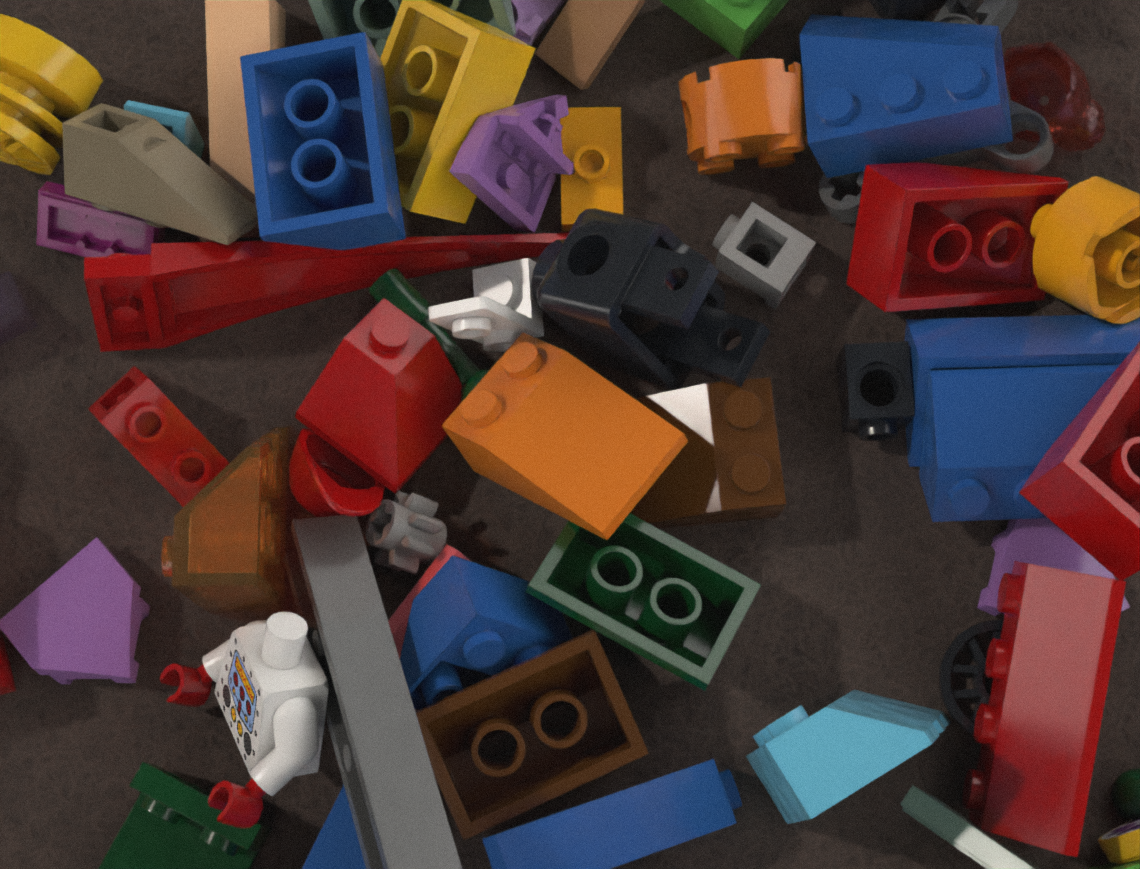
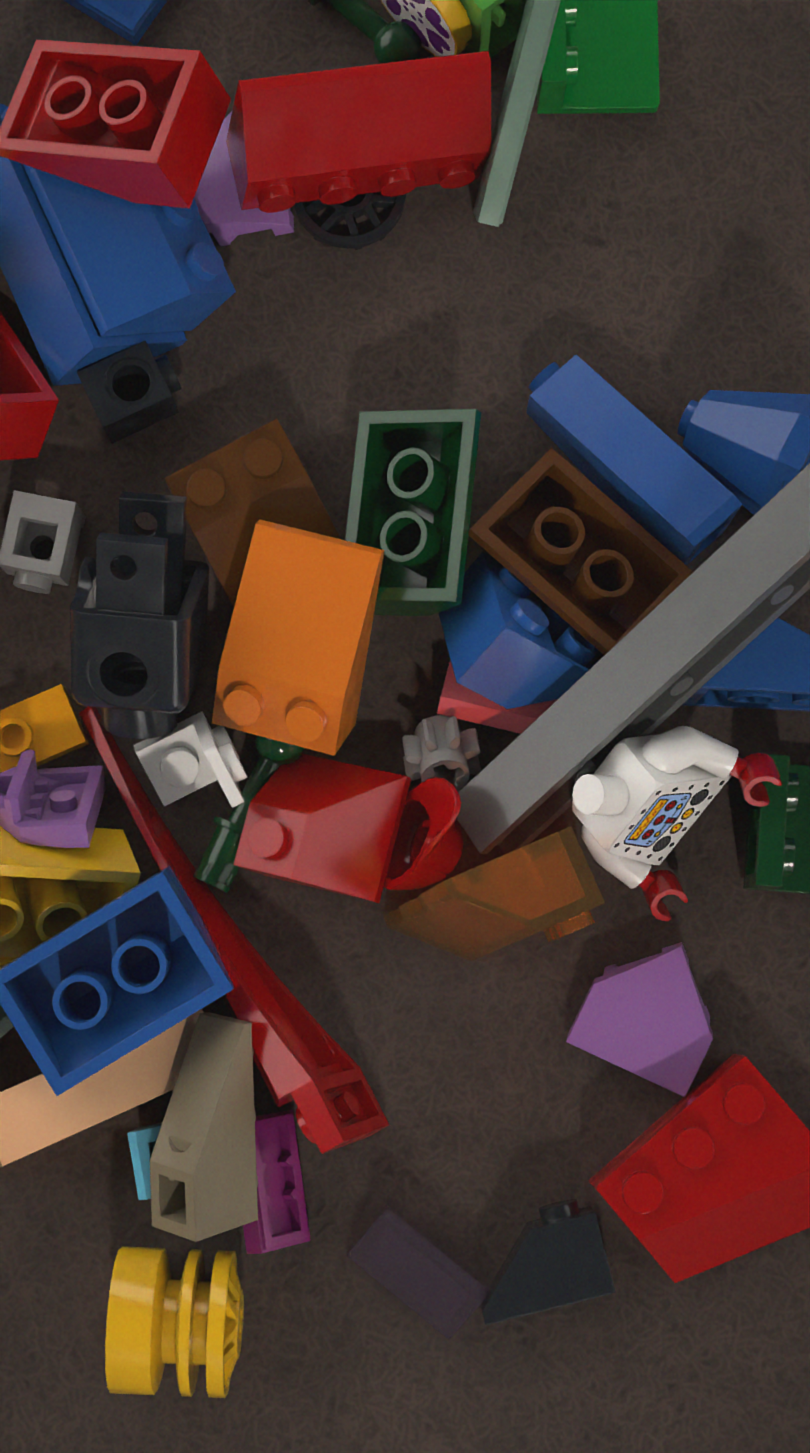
camera: 110 degrees left, 5 degrees up
(158, 435) = (447, 1030): red bracket -> none
(838, 750) = (477, 282): medium azure wedge -> none

